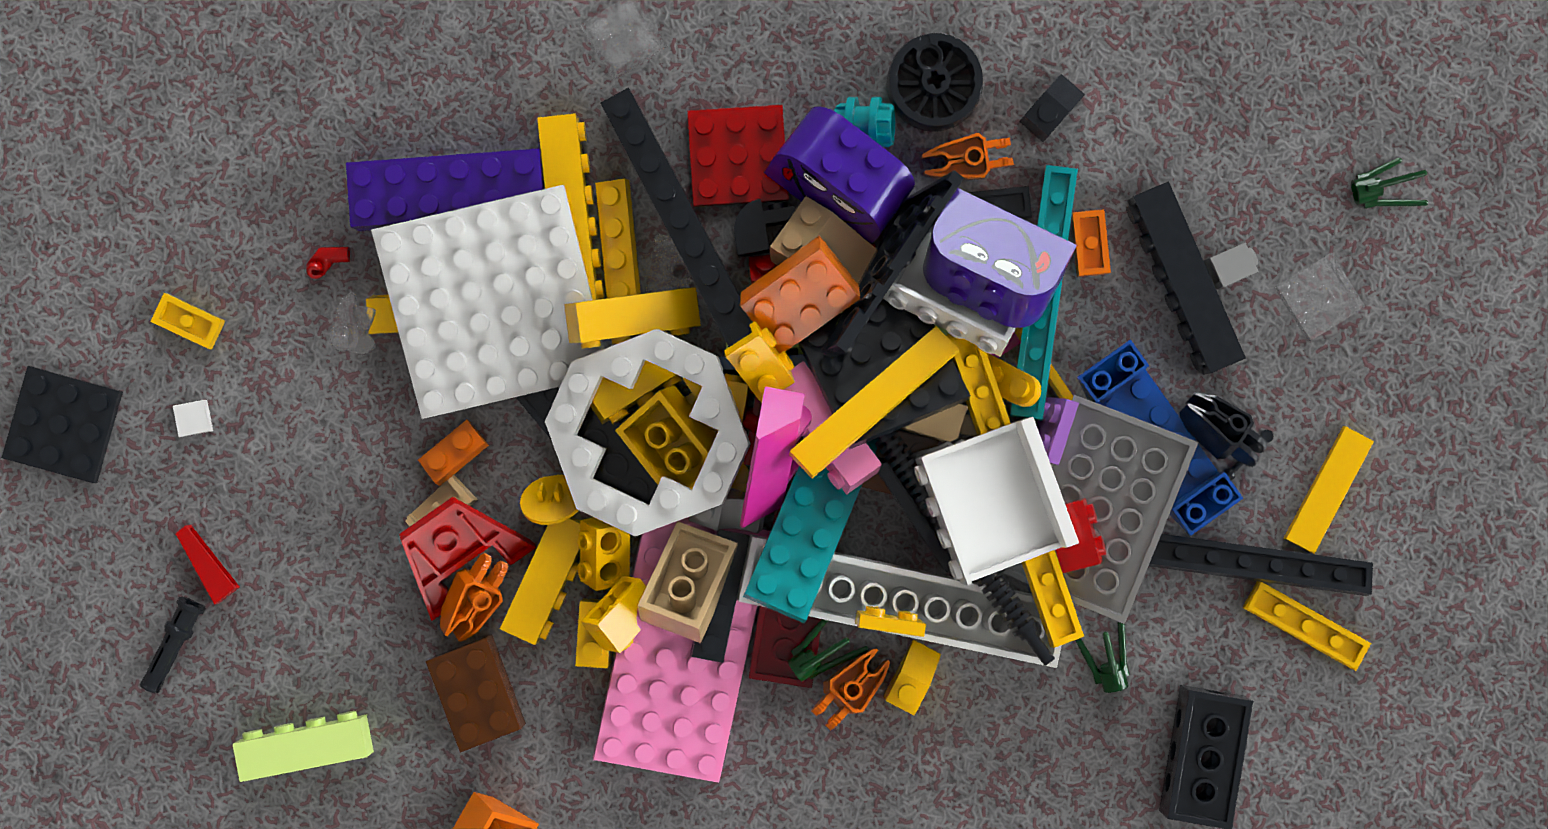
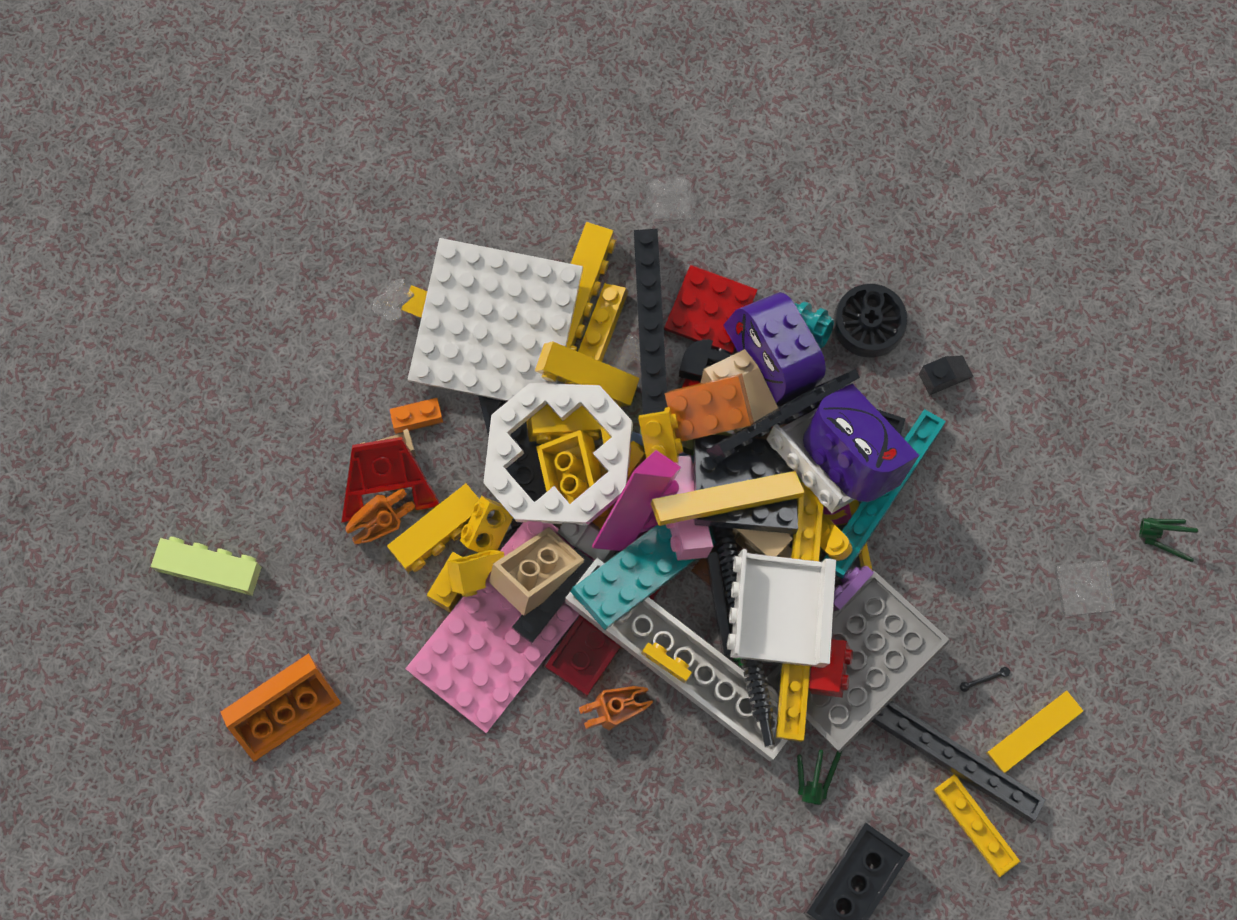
camera: 25 degrees right, 15 degrees down
(62, 424) = (164, 278): black plate -> none
(177, 632) = (163, 448): black pin -> none
(187, 321) = (284, 249): yellow plate -> none
(192, 418) = (252, 313): white tile -> none
(208, 567) = (209, 419): red piece -> none
(325, 258) = (397, 251): red arm -> none
(420, 187) = (484, 227): dark purple brick -> none
(476, 693) = (346, 584): reddish brown brick -> none
(548, 501) = (465, 475): yellow piece -> none
(808, 665) = (591, 672): dark green plant -> none
(912, 677) = (663, 722): yellow slope -> none
(968, 157) = (872, 378): orange hinge -> none
(1092, 244) = (933, 476): orange plate -> none
(1126, 386) = (914, 580): blue slope -> none
(1185, 279) = (991, 531): black brick -> none
(1222, 428) = (973, 647): black hinge -> none
(1232, 265) = (1029, 537): light grey brick -> none

